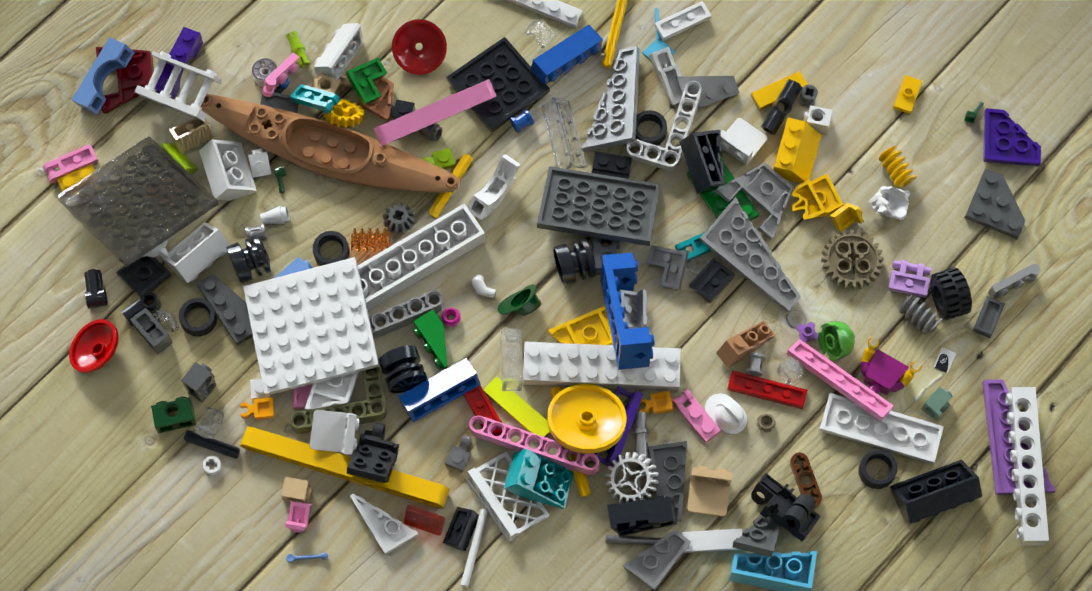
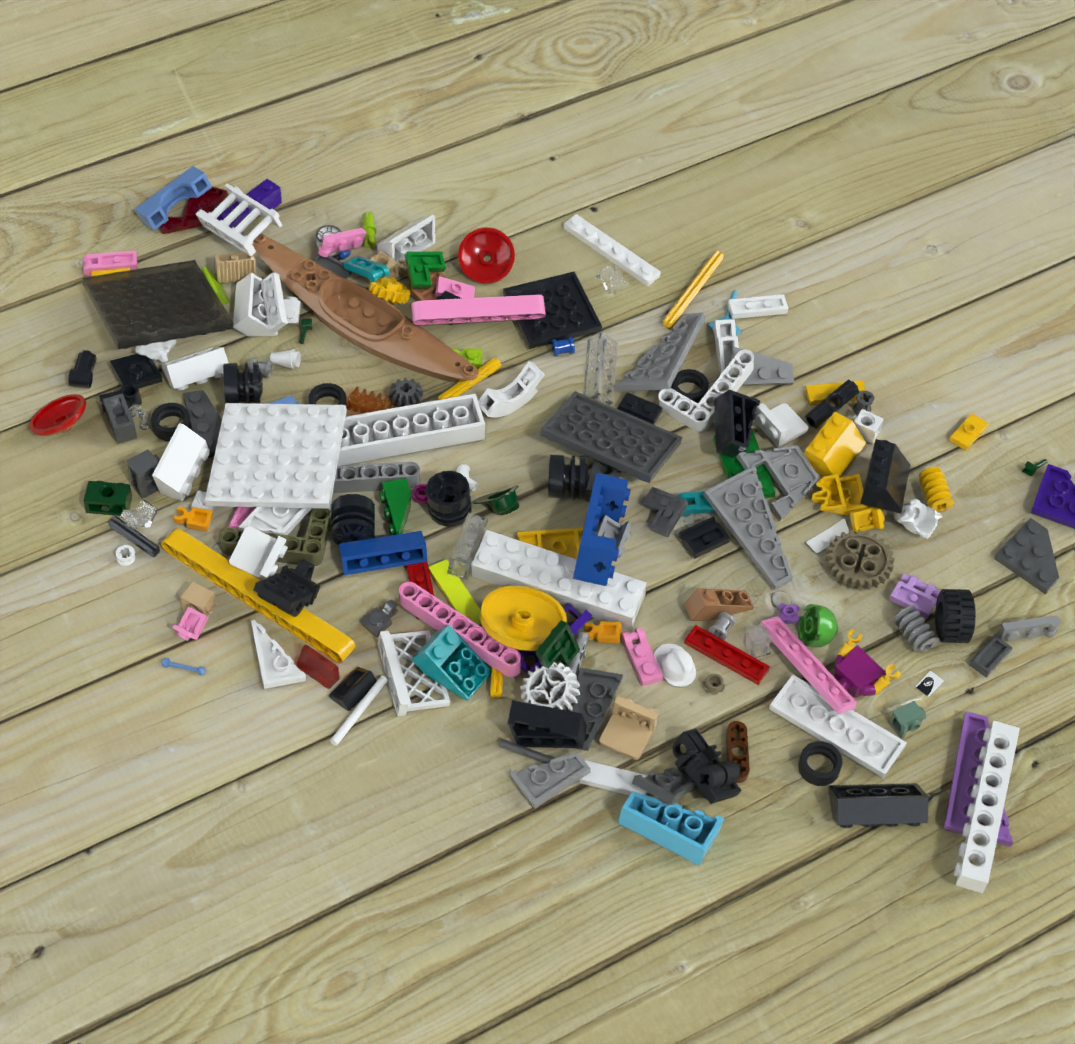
camera: 15 degrees right, 15 degrees down
(228, 361) = (180, 463): none -> white slope
(243, 162) = (274, 302): none -> white plate
(406, 92) = (454, 287): none -> bright pink plate
(432, 132) = (470, 331): dark grey cone -> none
(477, 308) = (448, 498): none -> black wheel
(567, 54) = (629, 301): blue brick -> none
(629, 437) = (558, 644): none -> dark green plate
(817, 242) = (823, 540): none -> white sticker
(851, 171) = (886, 477): none -> black slope

